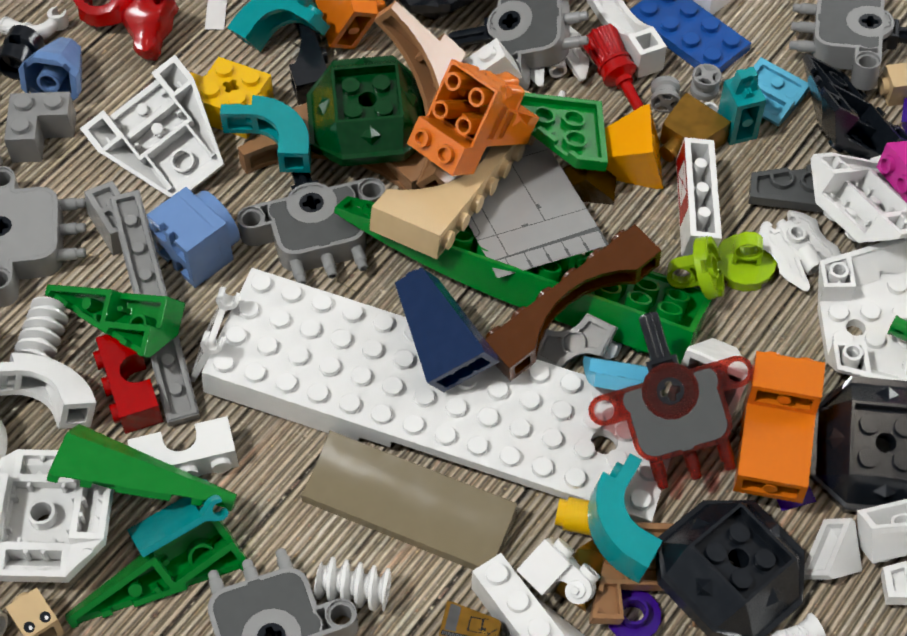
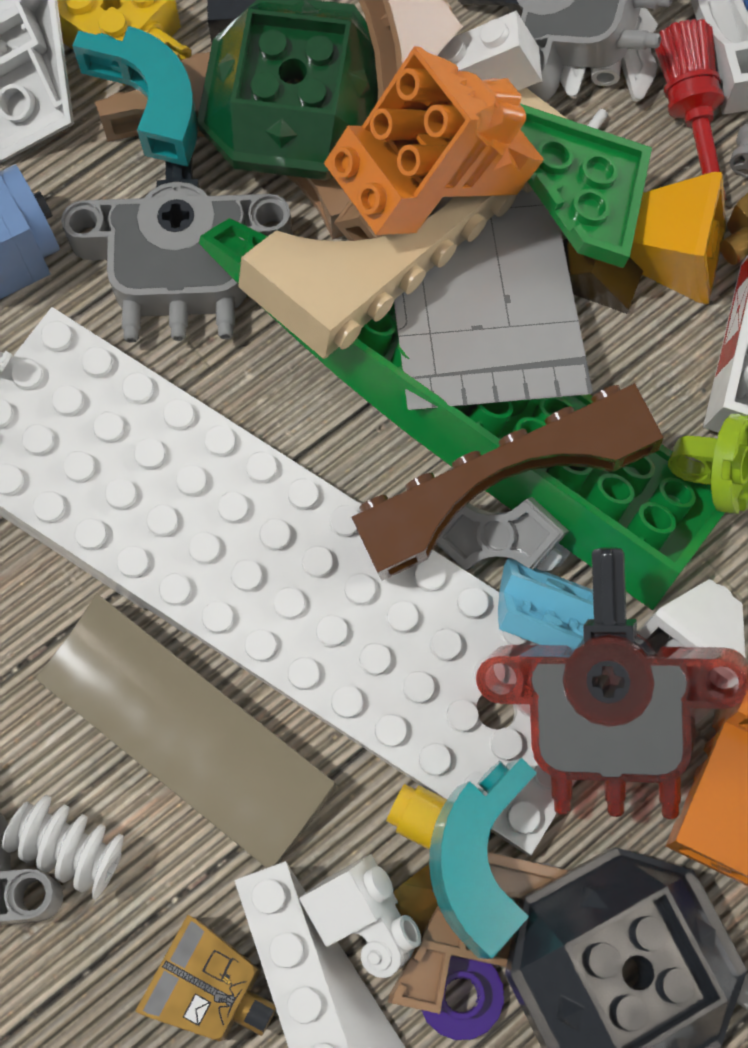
camera: 15 degrees right, 15 degrees up
(442, 333) = (293, 484): dark blue slope -> none

